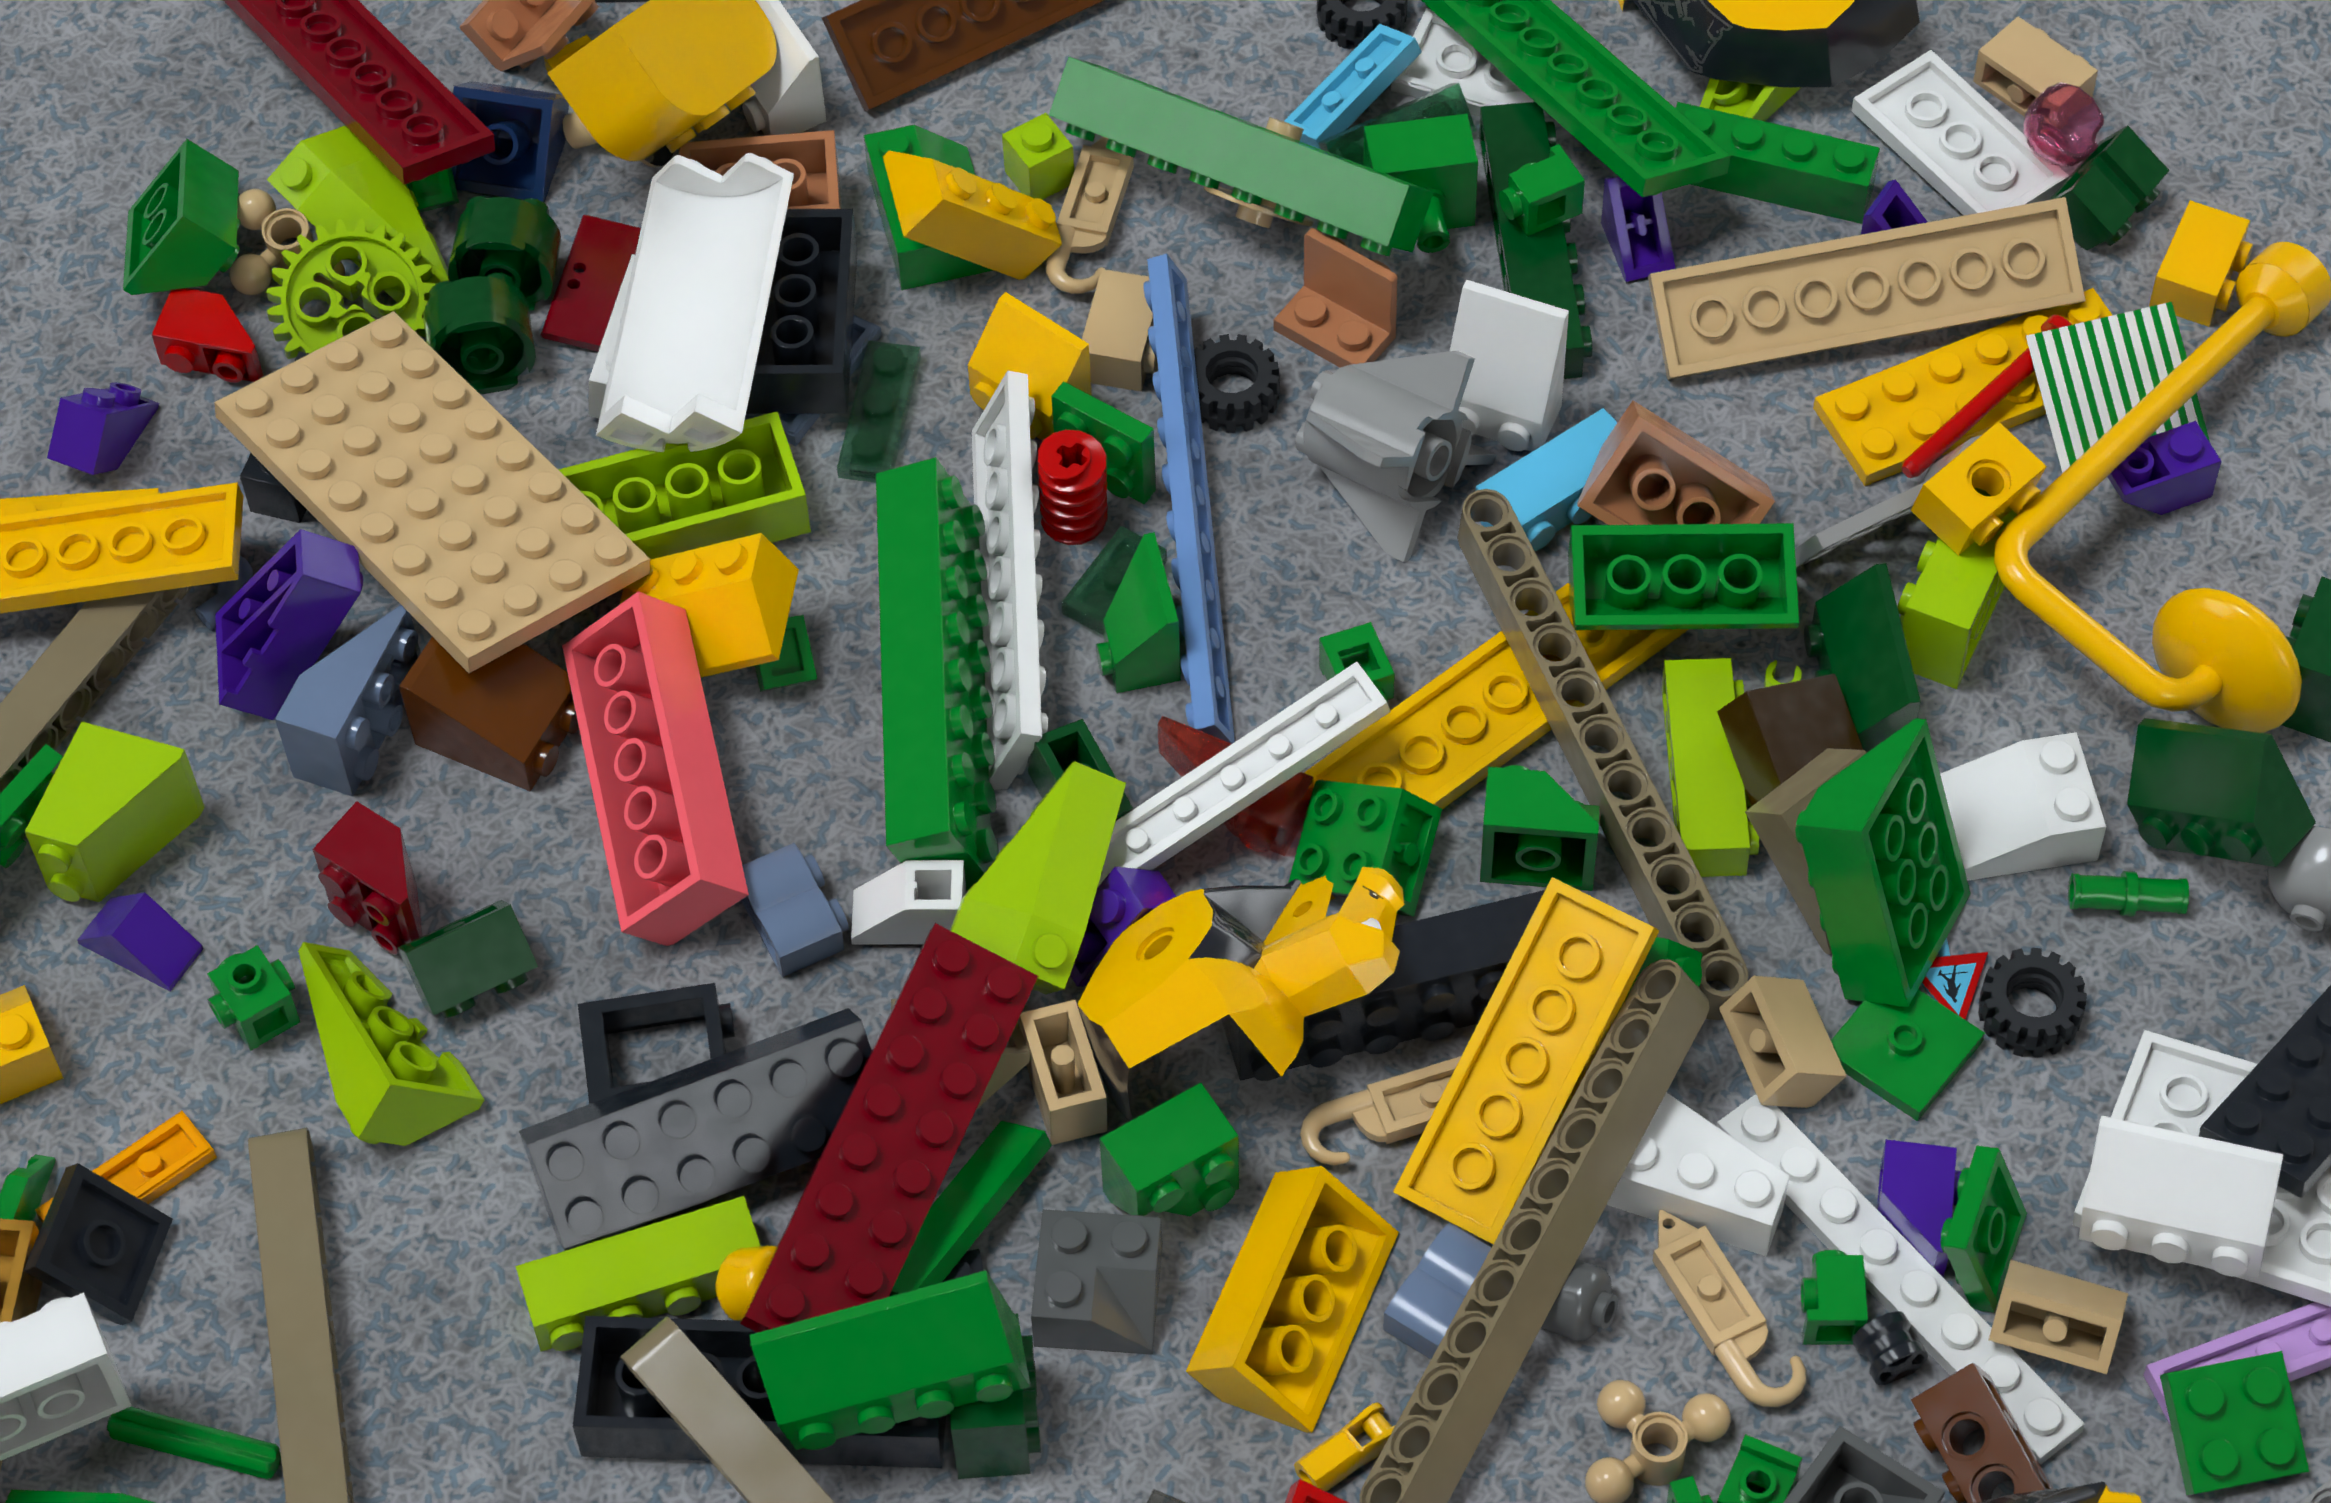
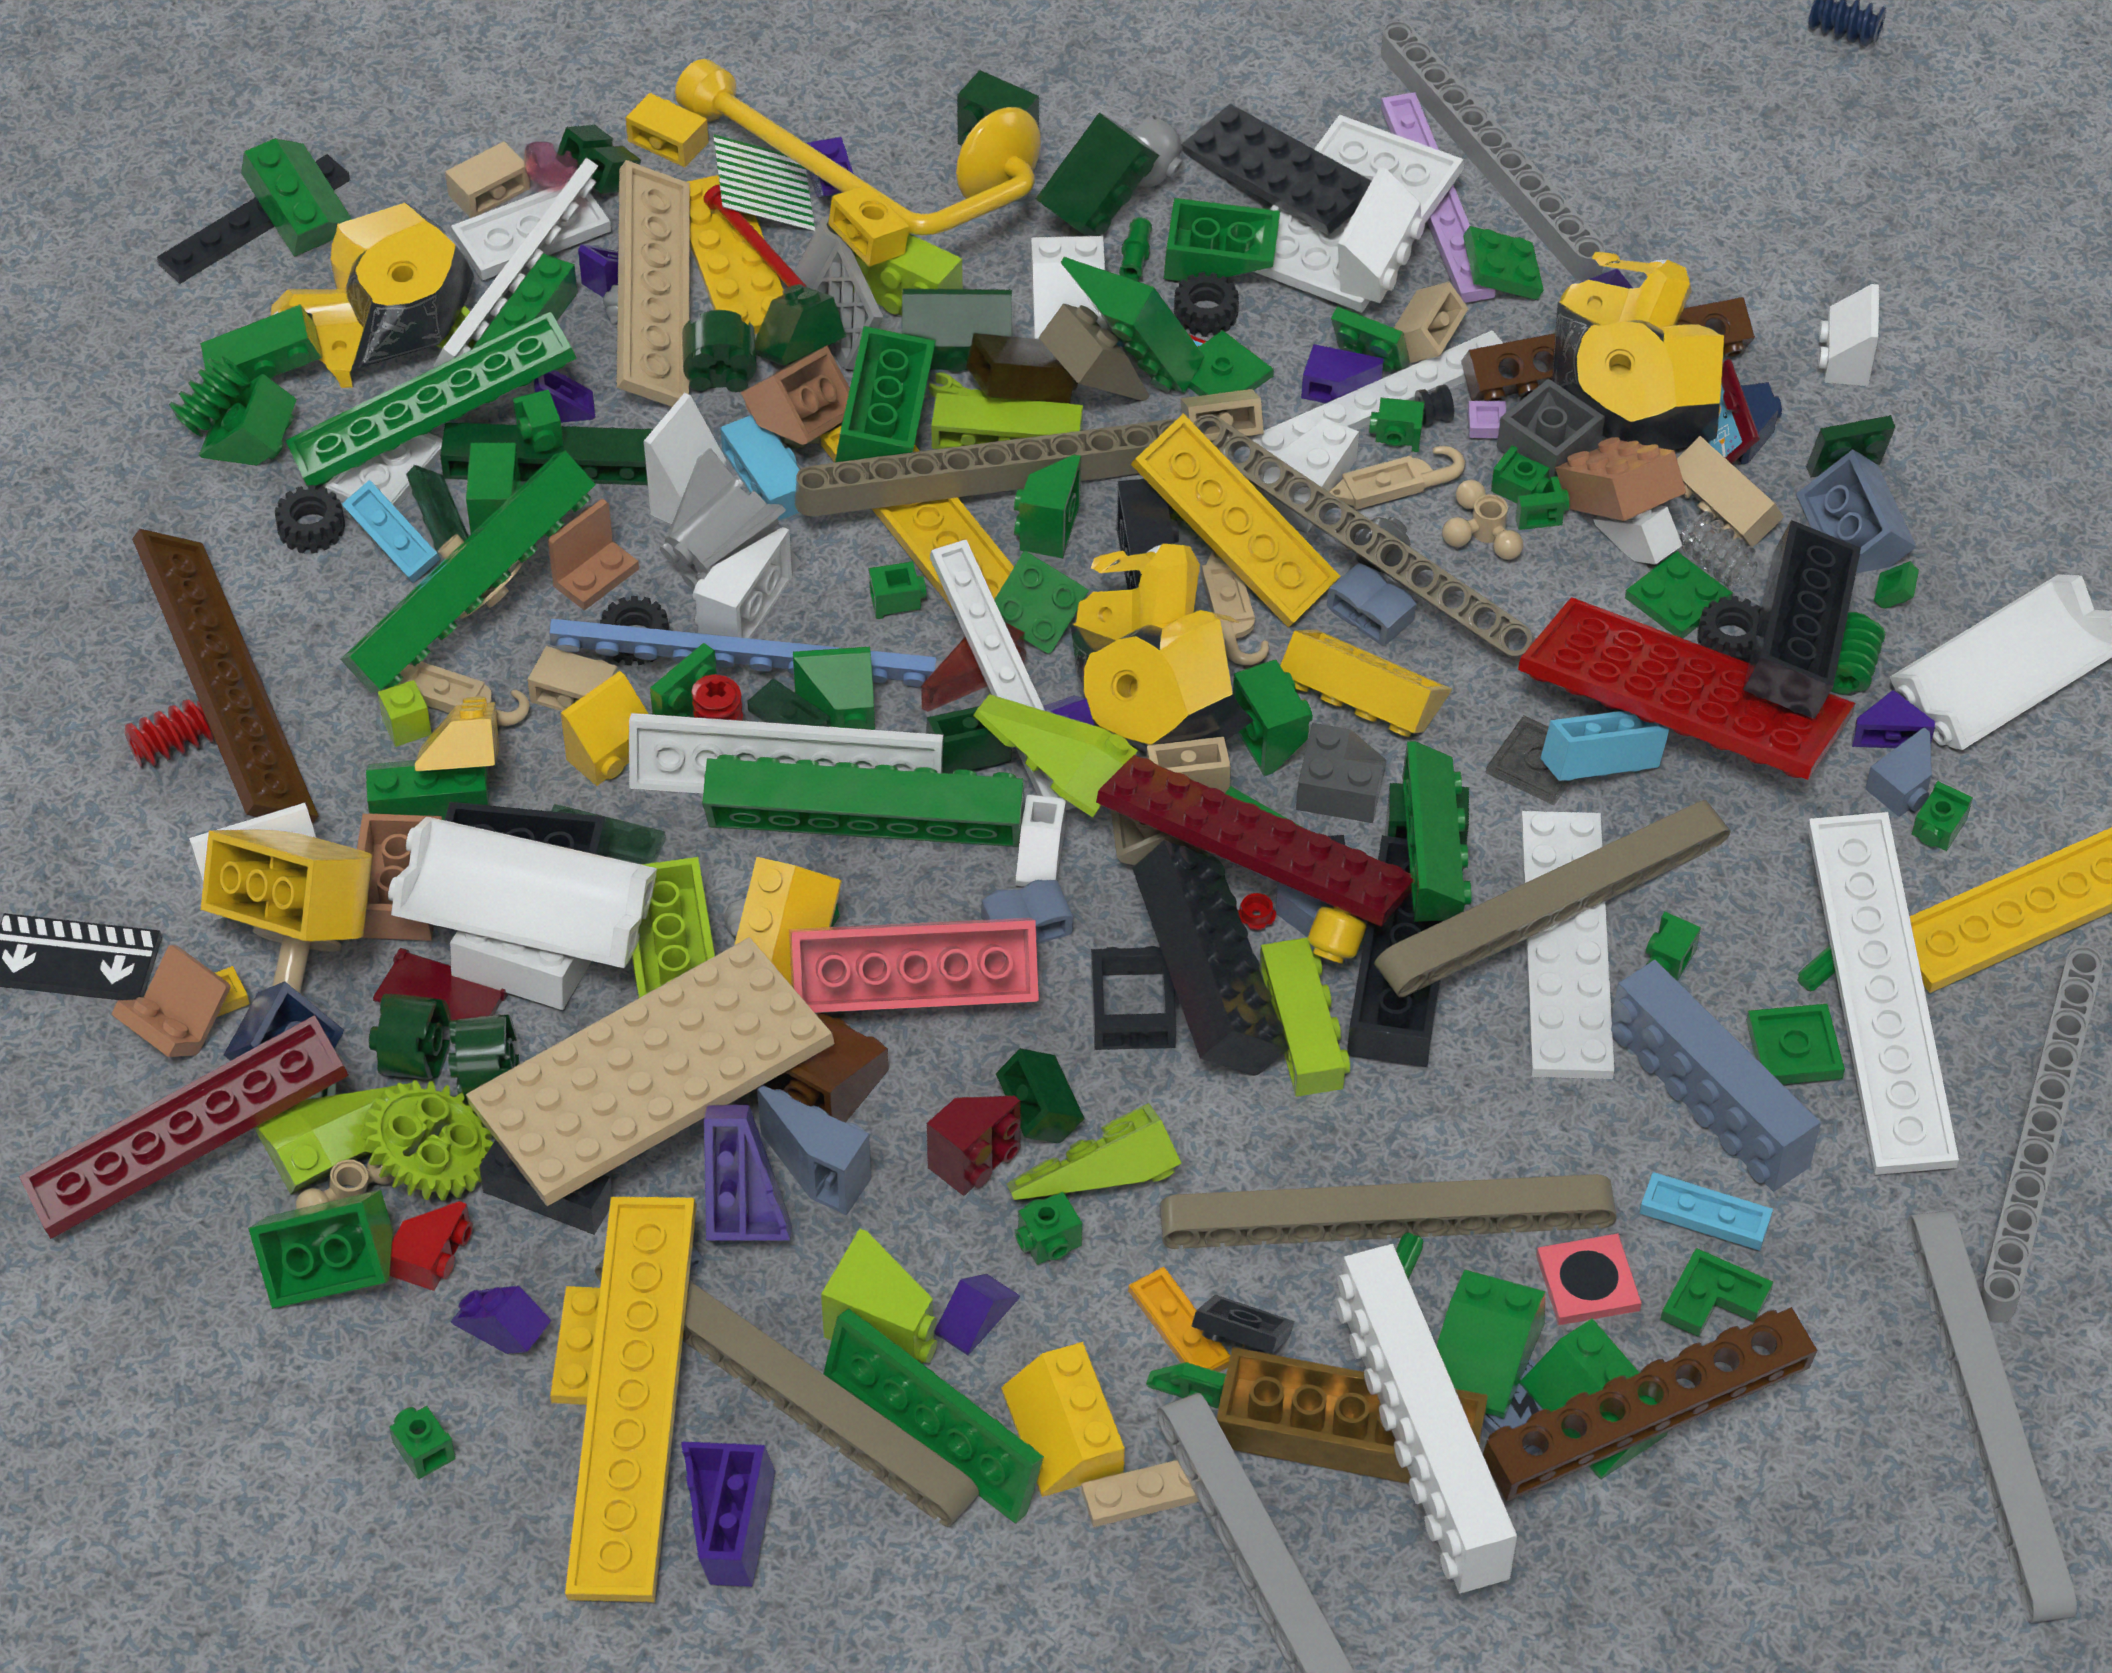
camera: 85 degrees left, 5 degrees down
(1298, 483) = (744, 587): none -> white slope
(1342, 1453) = (1470, 670): yellow bar -> none
(1751, 385) = (719, 351): none -> dark green brick
(1827, 475) = (798, 325): none -> dark green slope
(1884, 1425) = (1485, 418): none -> lavender plate
(1924, 141) = (526, 255): none -> white plate
(2154, 989) = (1219, 239): none -> green slope

